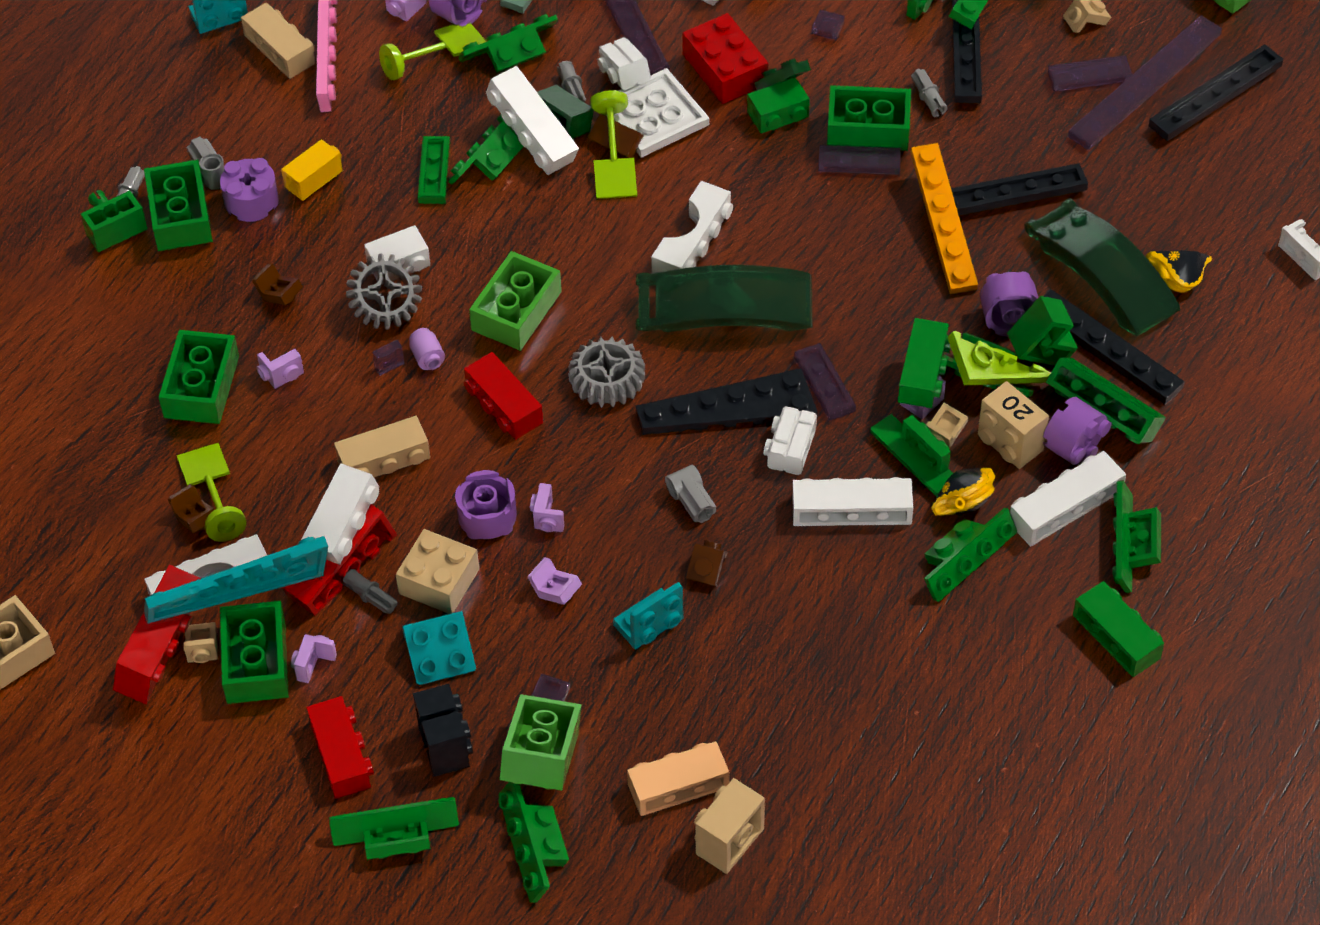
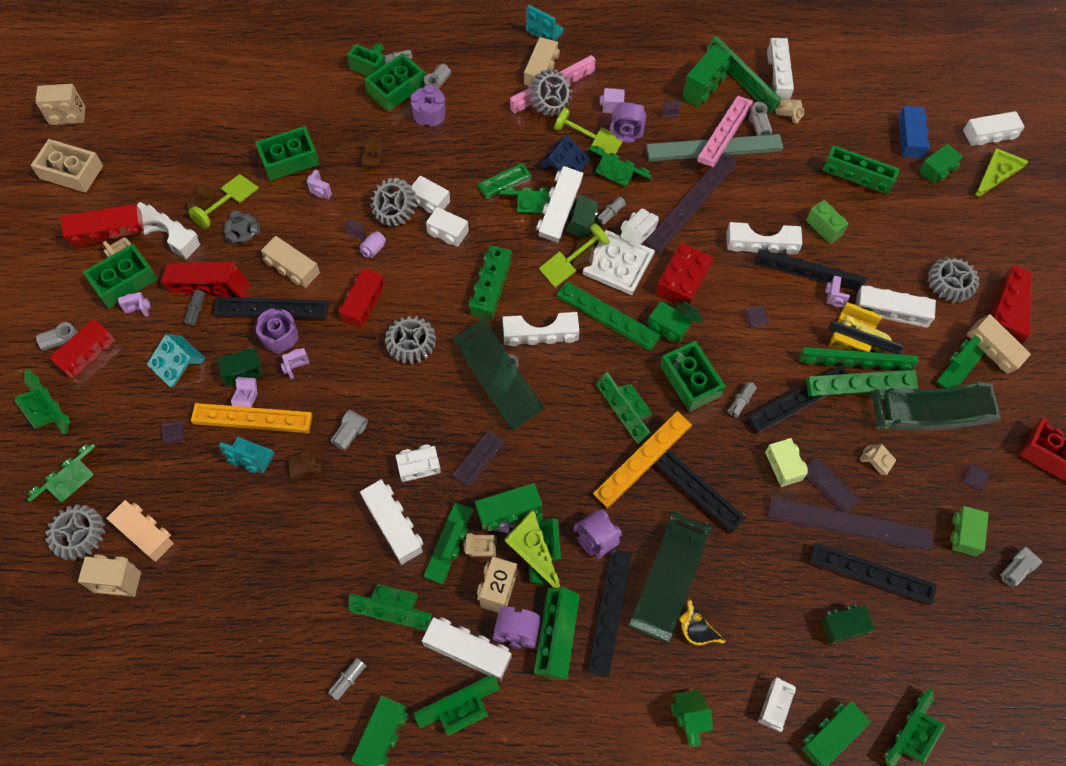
camera: 55 degrees right, 10 degrees up
(251, 578) = (166, 260): teal wing -> none
(282, 491) = (240, 226): none -> dark grey piece
(294, 771) = (56, 336): none -> light grey piece
(312, 169) = (460, 125): yellow brick -> none
(343, 510) = (210, 261): white brick -> none
(345, 48) = (559, 101): none -> light grey gear
(437, 571) = (220, 332): tan brick -> none
(439, 502) = (256, 306): none -> black plate
(443, 729) = (108, 400): black piece -> none
(447, 85) = (565, 154): none -> dark blue bracket
(463, 257) = (447, 227): none -> white brick
(511, 564) = (240, 364): none -> dark green brick
(515, 300) = (429, 267): bright green brick -> none
(540, 742) = (119, 444): bright green brick -> none
(585, 251) = (491, 282): none -> green brick
(595, 592) = (251, 418): none -> light orange plate
(633, 870) = (80, 537): none -> light grey gear
(720, 162) = (608, 316): none -> green plate
(728, 404) = (439, 428): black wing -> none
(859, 159) = (662, 389): tile -> none
(860, 203) = (627, 406): none -> green bracket
(964, 492) = (435, 584): yellow hat -> none
(1026, 635) = (347, 679): none -> light grey axle
(1038, 89) = (786, 462): none -> yellowish green brick
(1043, 332) = (580, 567): green brick -> none
(1261, 140) = (847, 624): none -> dark green brick
(1278, 318) = (692, 715): none -> green brick

